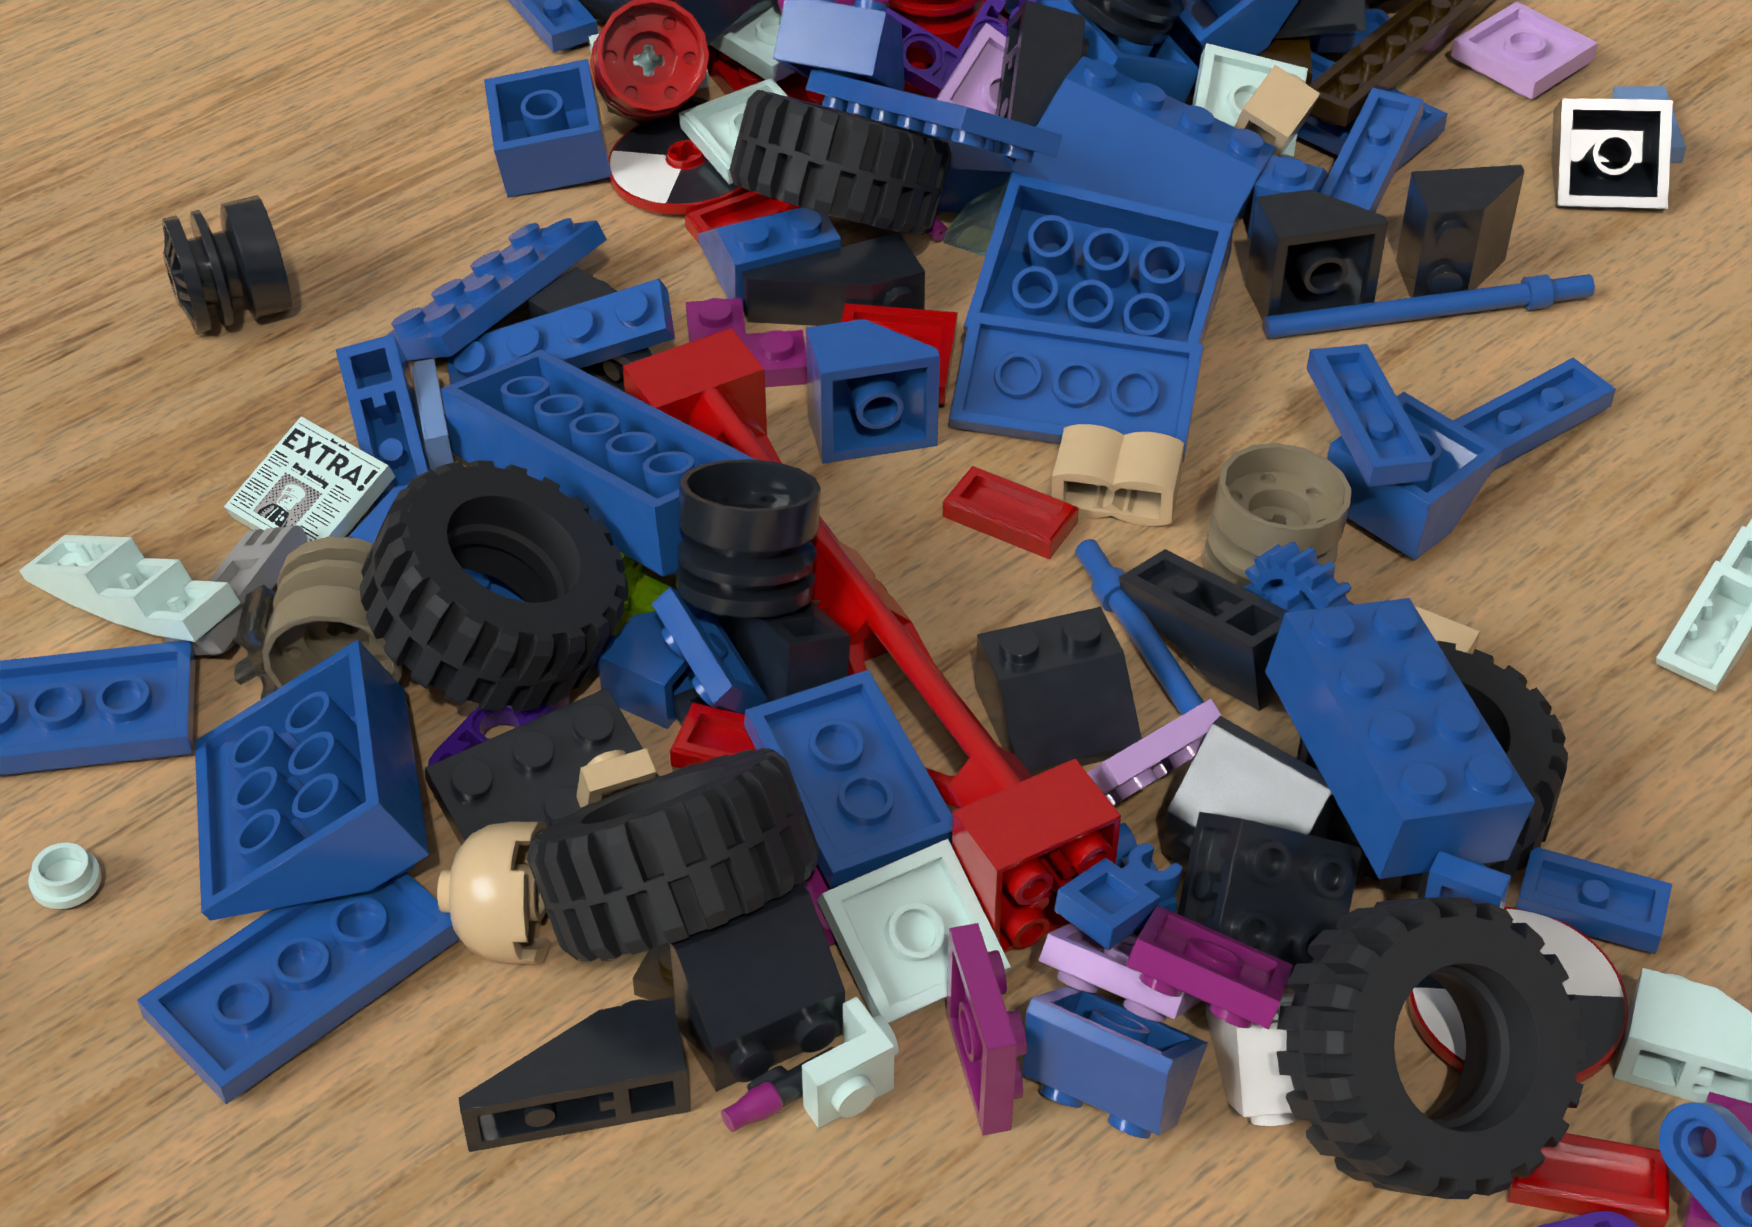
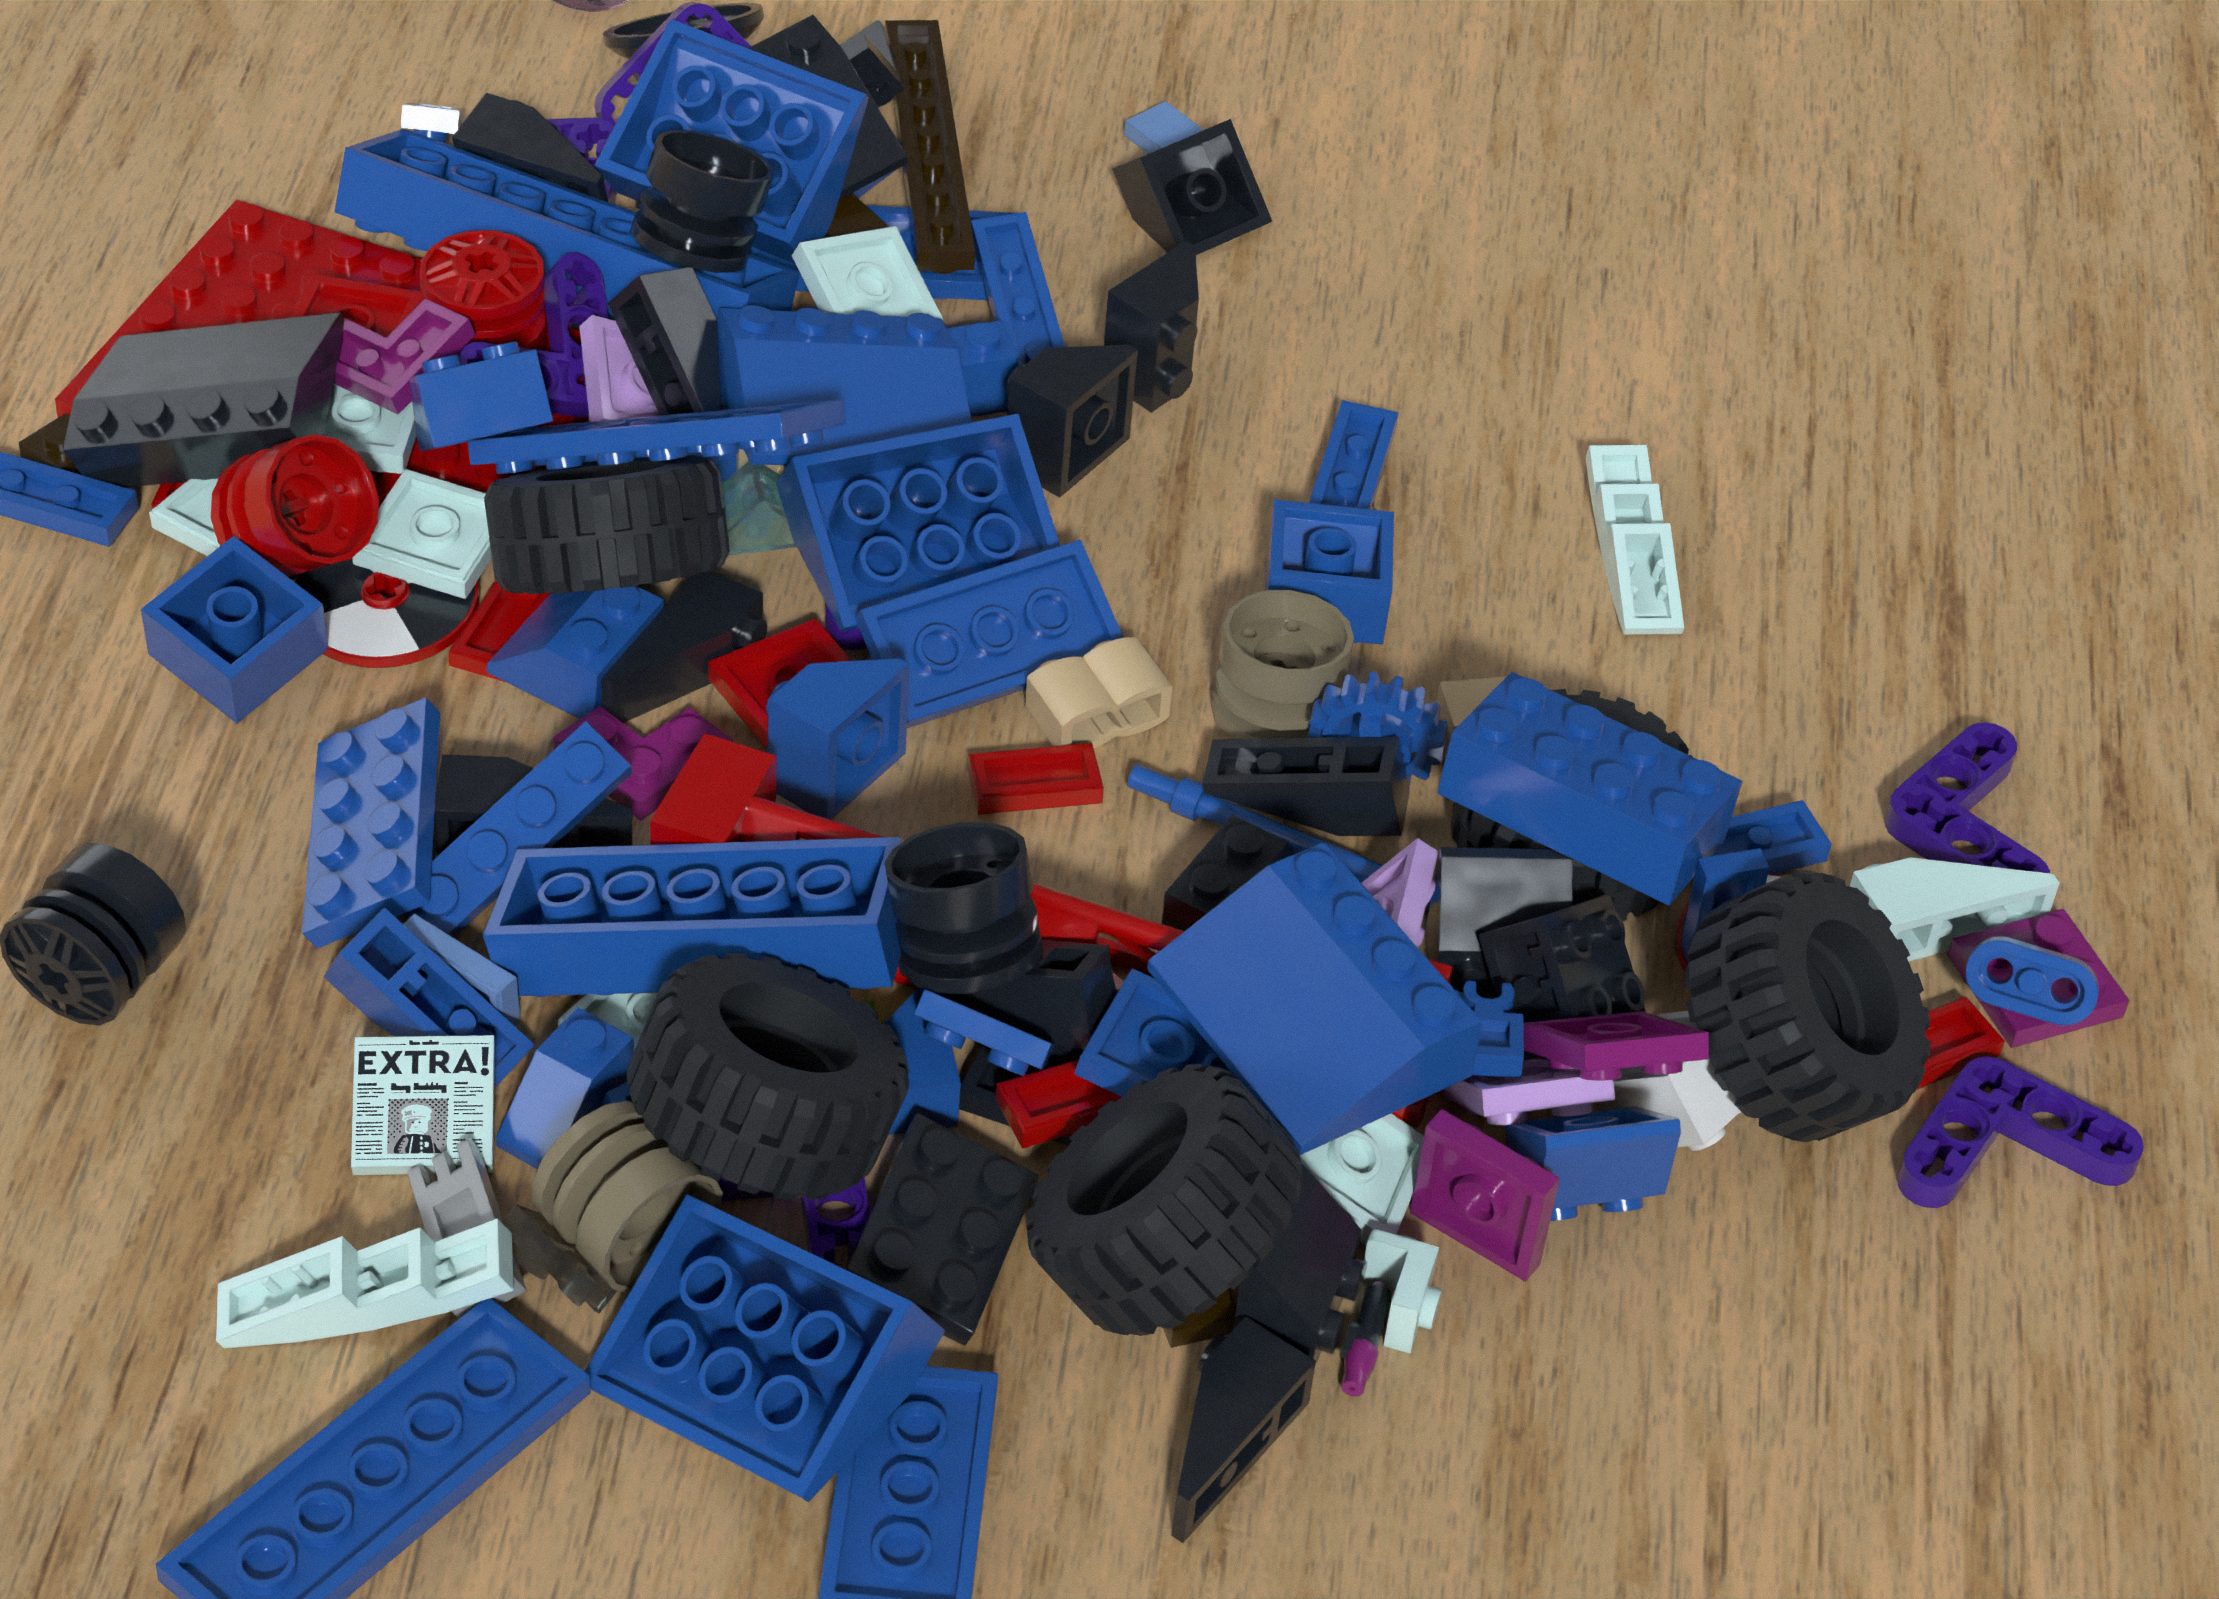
camera: 45 degrees left, 0 degrees up
(64, 876) = (615, 1558): light aqua plate -> none
(495, 895) = (1025, 1324): tan cylinder -> none
(613, 773) = (1018, 1180): tan plate -> none
(949, 772) = (1318, 1000): none -> blue slope
(1278, 108) = (917, 280): tan brick -> none
(1369, 415) = (1286, 534): blue plate -> none
(1524, 50) = (1019, 117): lavender plate -> none
(1532, 293) = (1243, 357): blue bar -> none

